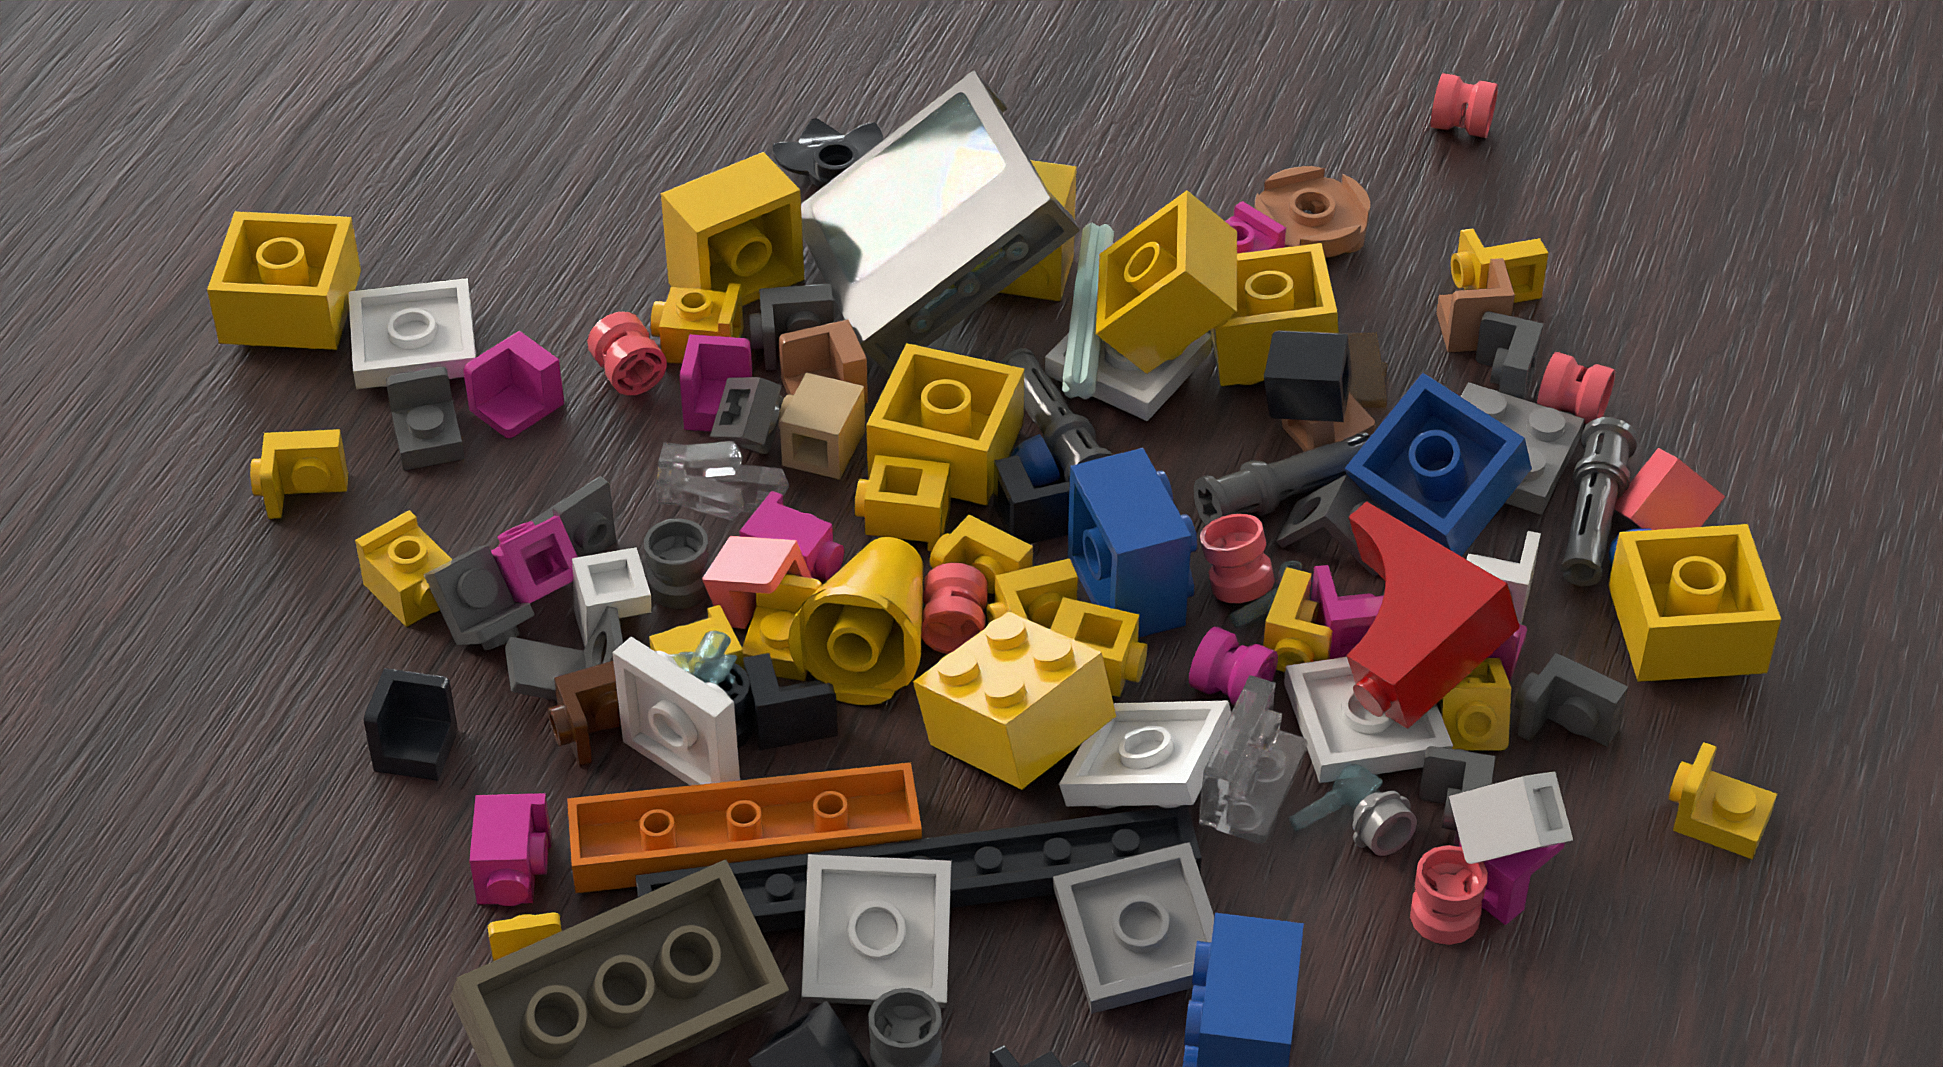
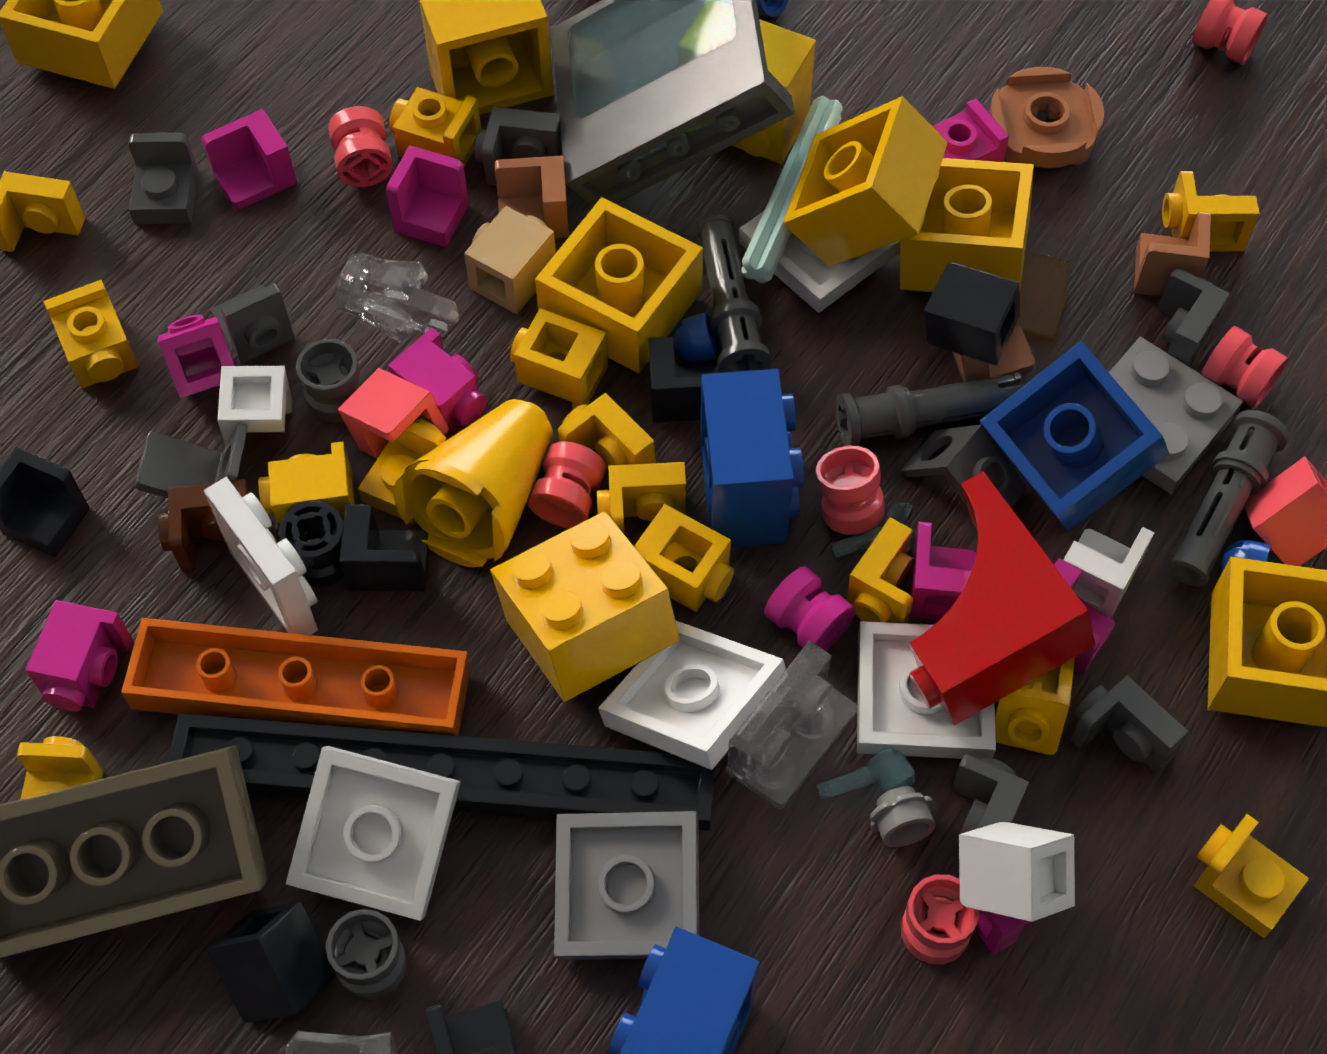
camera: 15 degrees right, 15 degrees up
(410, 330) = (180, 85): white plate -> none
(476, 600) = (138, 382): dark grey bracket -> none
(708, 659) = (305, 506): clear light blue hand -> none
(748, 413) = (442, 239): dark grey bracket -> none

